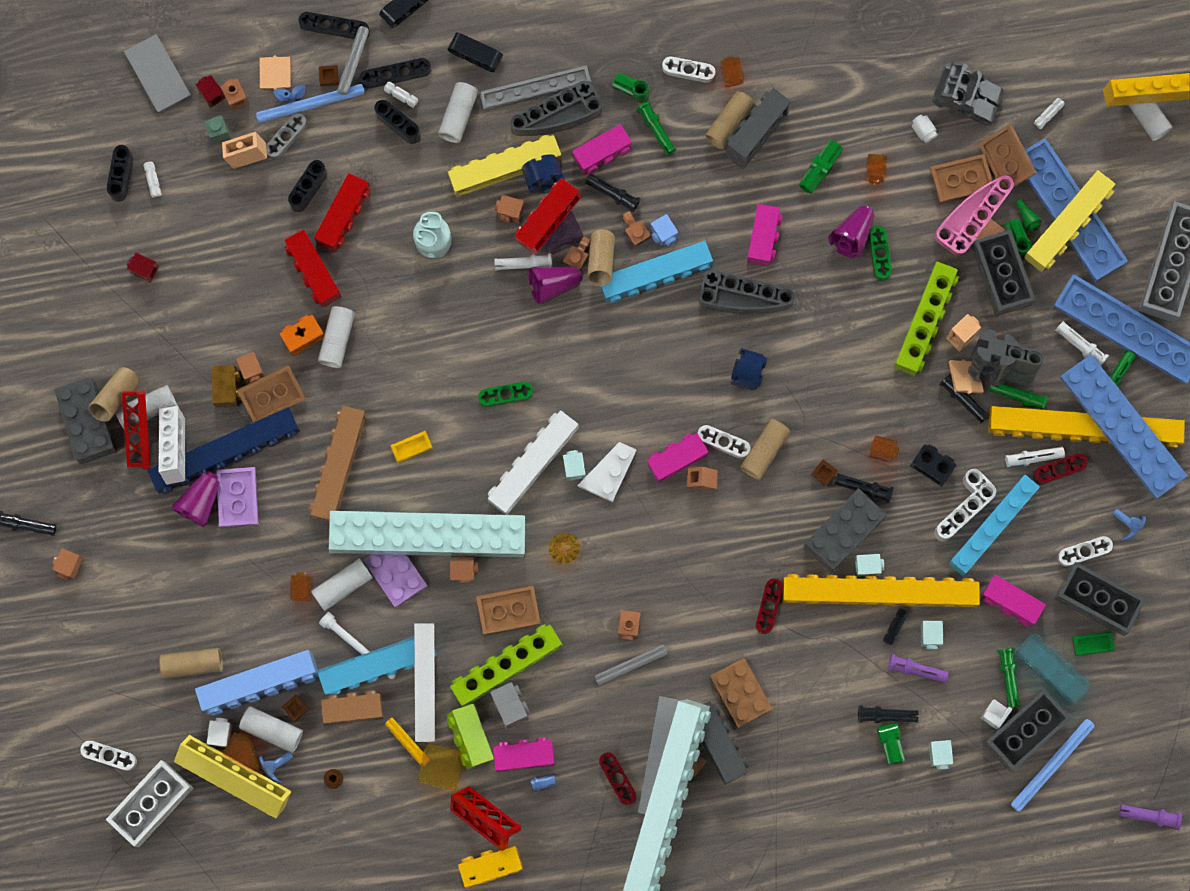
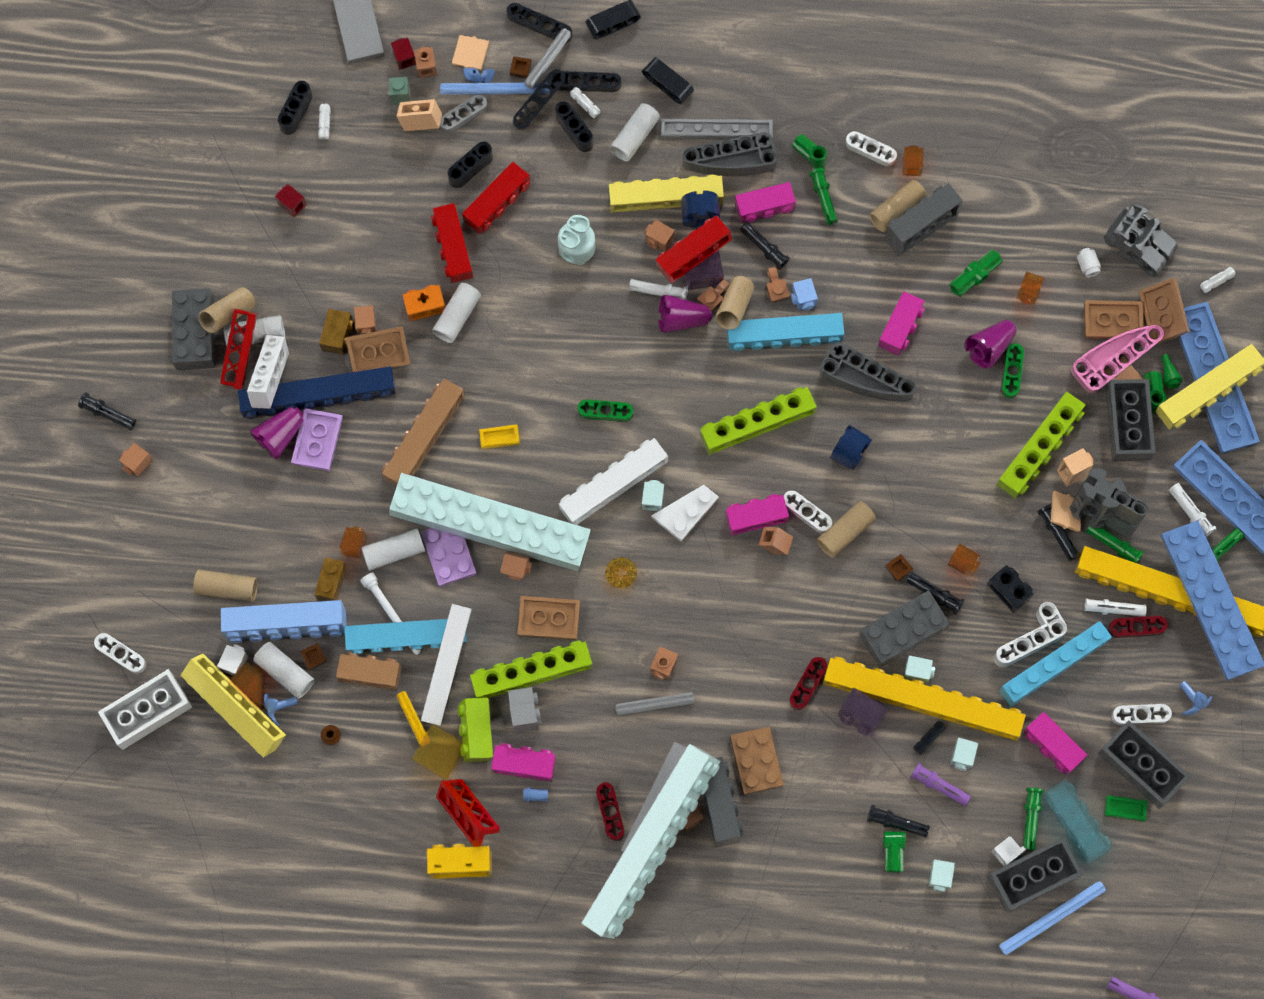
camera: 15 degrees right, 5 degrees down
(290, 631) = (330, 580): none -> pearl gold brick
(358, 105) = (537, 98): none -> black beam
(665, 364) = (716, 443): none -> lime brick
(828, 622) = (862, 712): none -> clear purple brick

